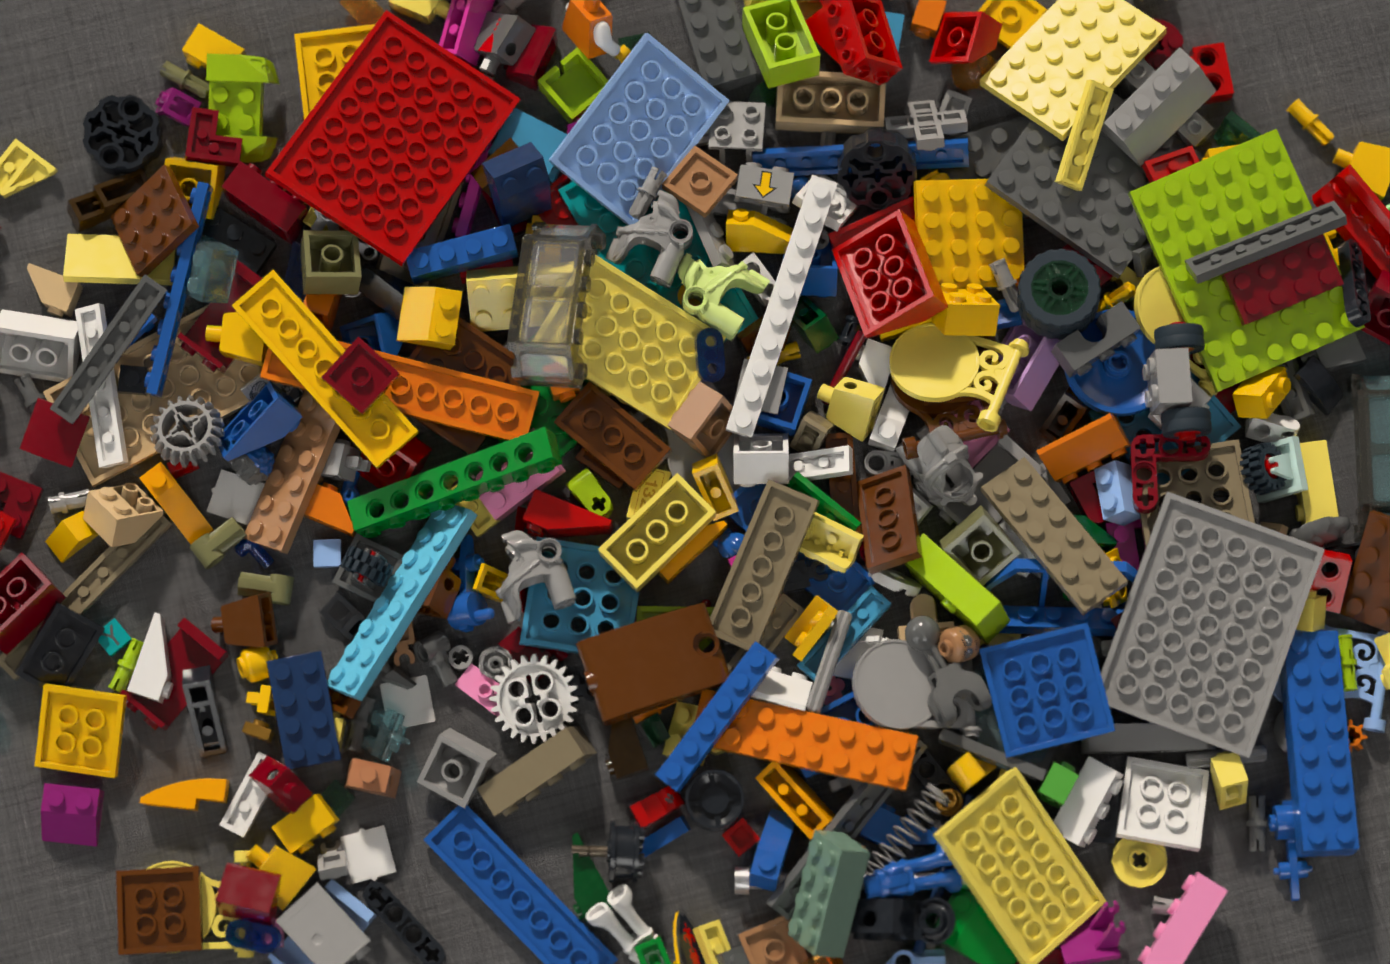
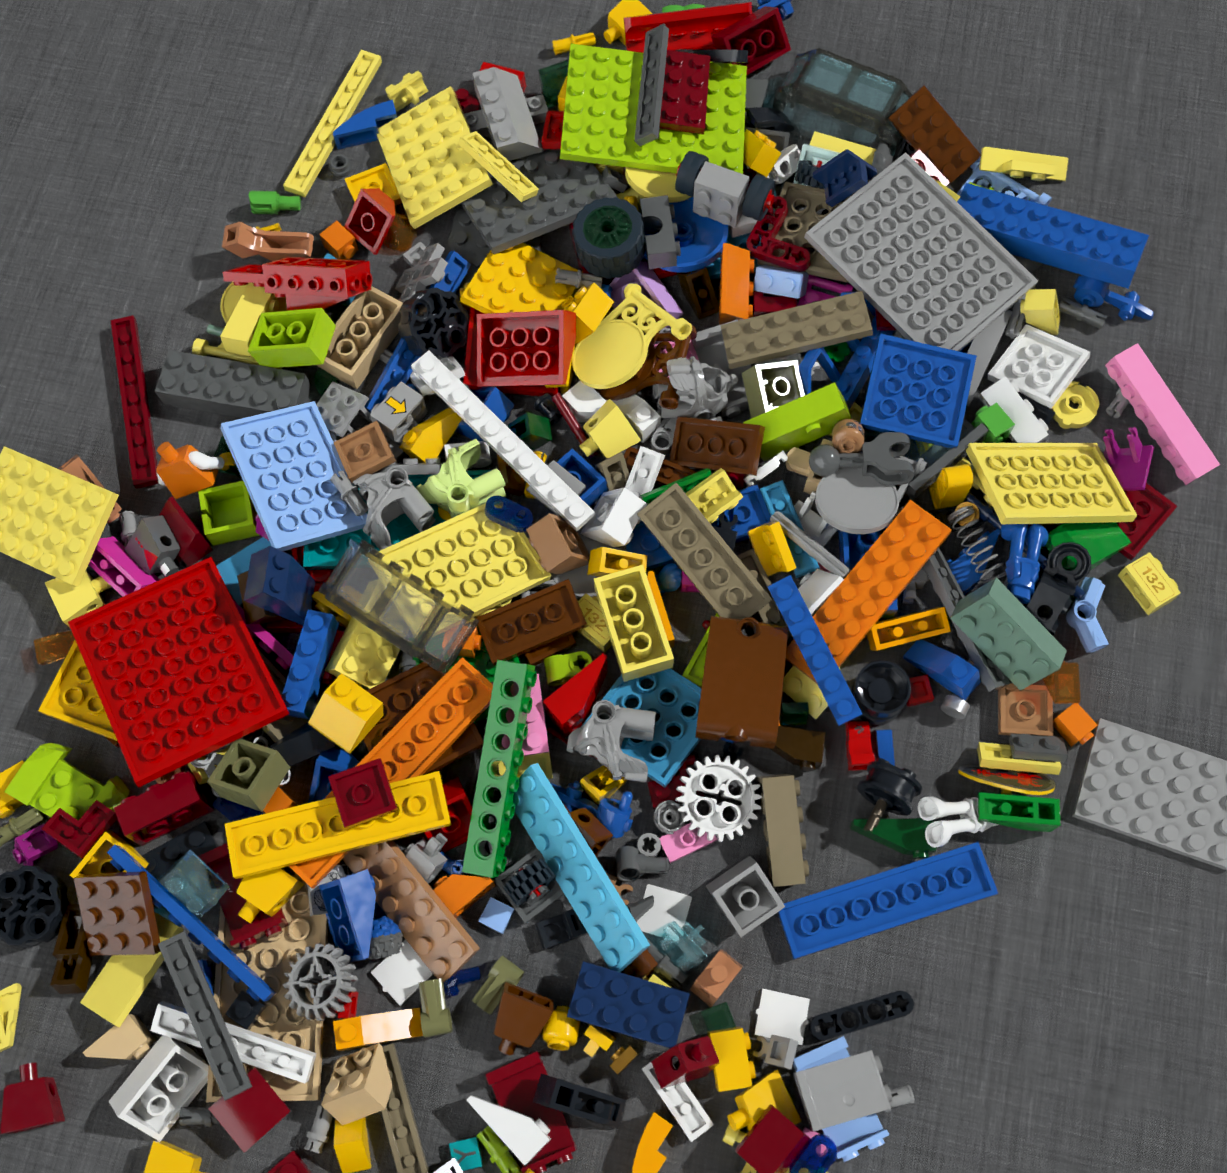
camera: 60 degrees left, 10 degrees down
(1256, 500) = (843, 176): none -> dark blue bracket

